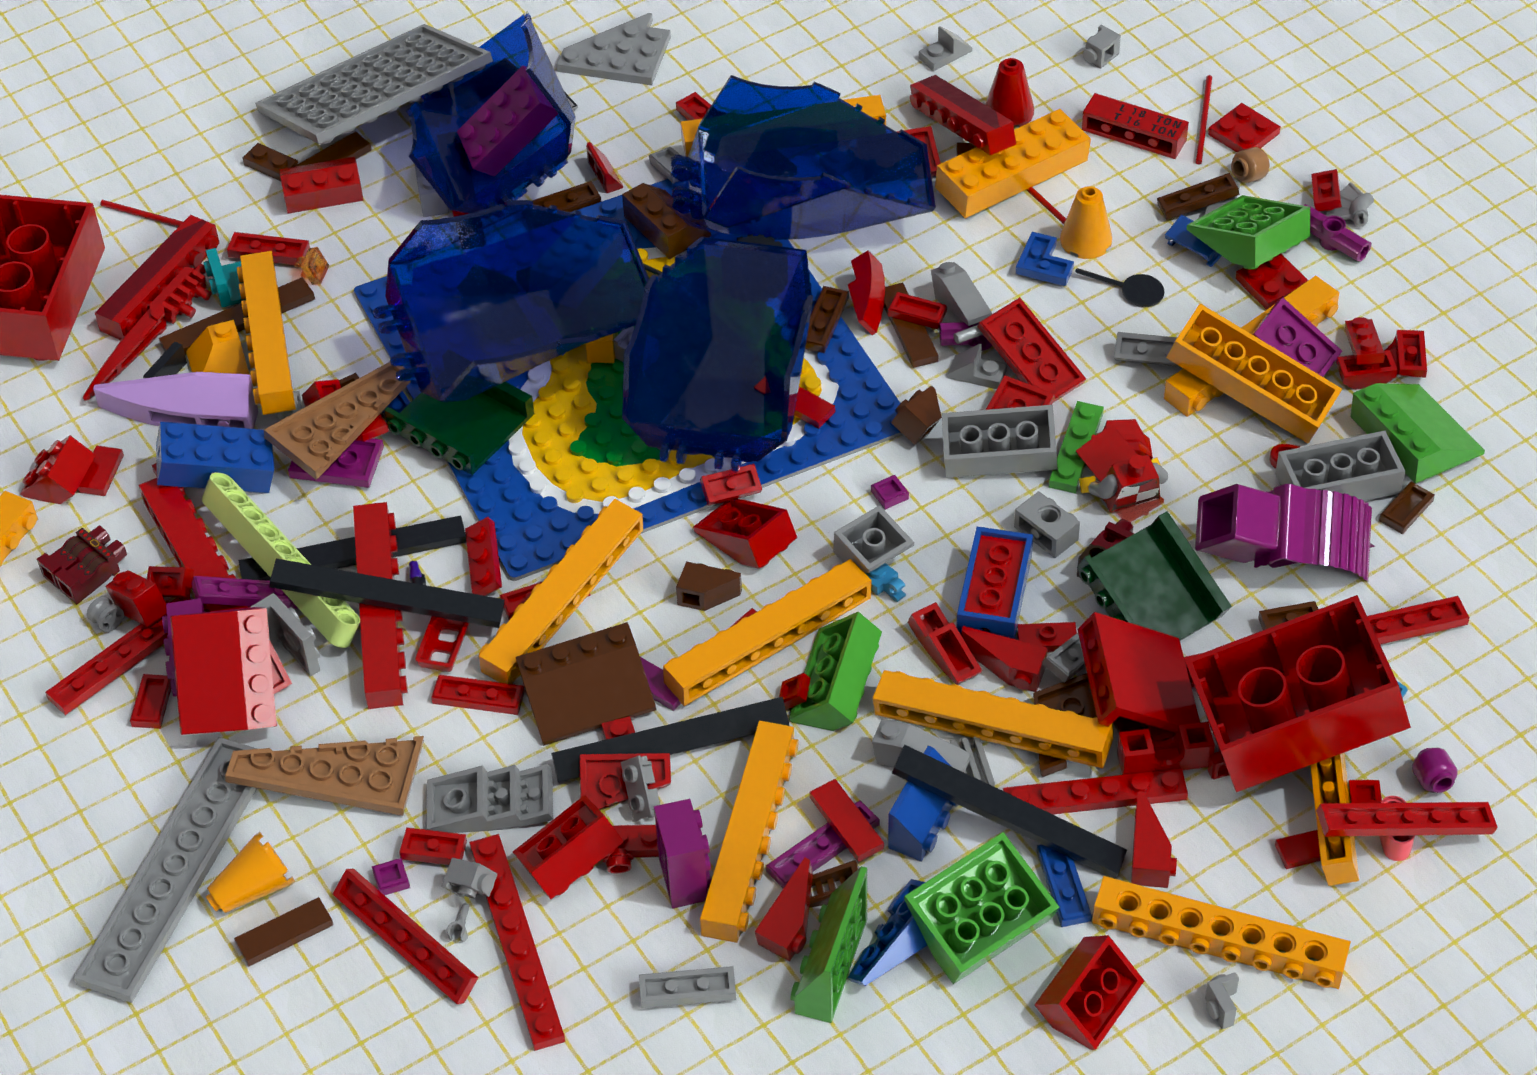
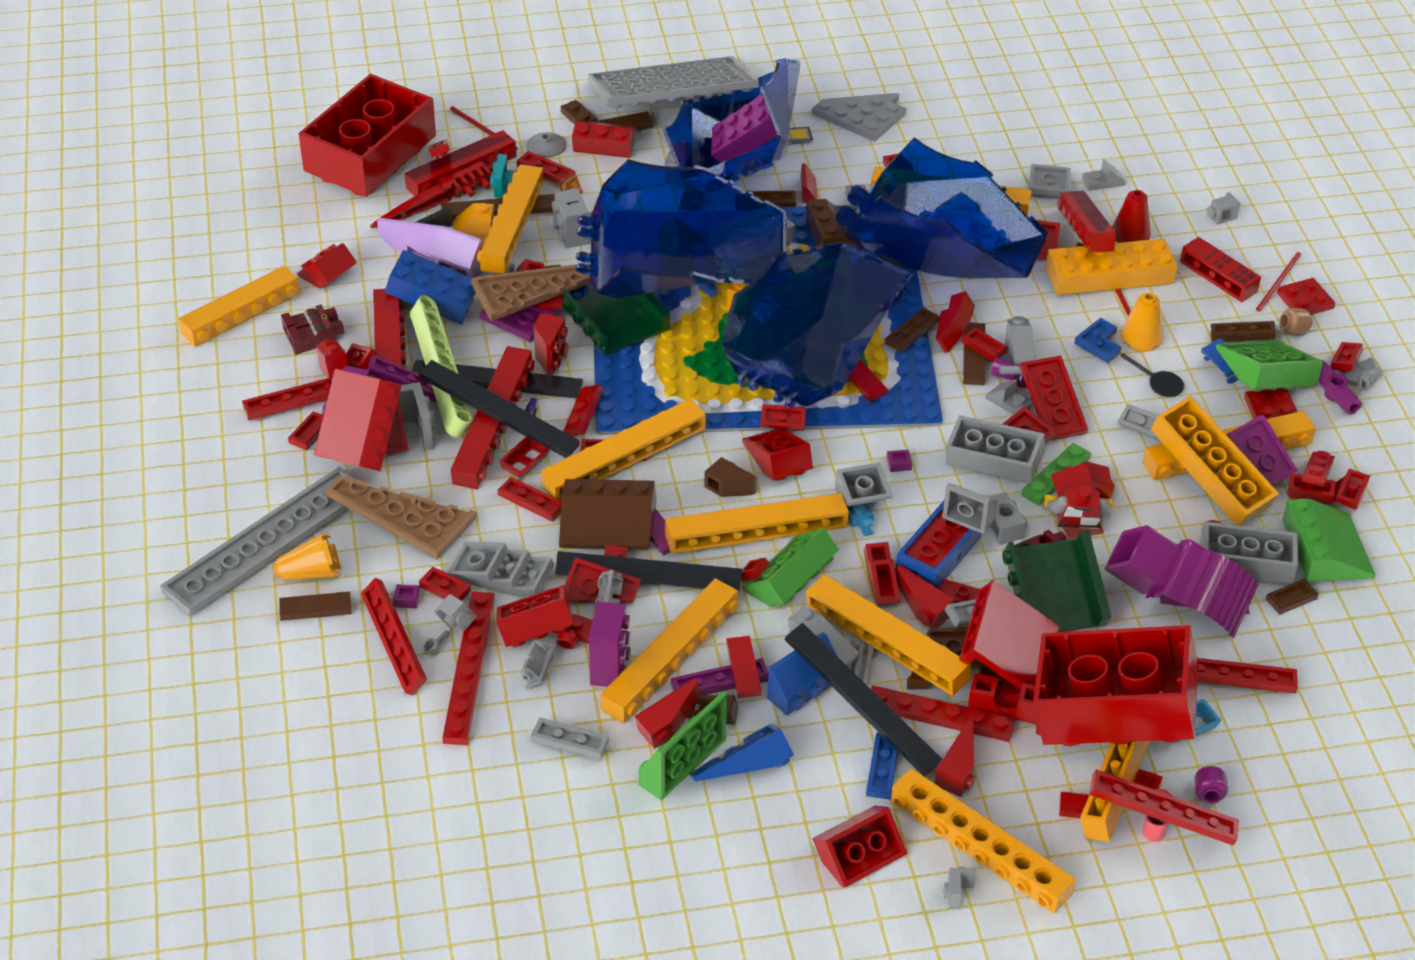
camera: 20 degrees right, 5 degrees down
(101, 471) = (356, 275): red tile -> none
(105, 614) = (308, 364): light grey wheel -> none
(123, 265) = (439, 149): none -> red plate
(249, 215) = (546, 144): none -> light grey dish
(340, 307) = (567, 209): none -> light grey brick
(399, 481) = (550, 341): none -> red slope
(602, 908) = (535, 671): none -> light grey hinge
(885, 73) = (1049, 180): none -> light grey plate
(918, 415) = (944, 413): reddish brown slope -> none
(980, 907) = (805, 756): bright green slope -> none
(1016, 530) = (968, 508): none -> light grey slope

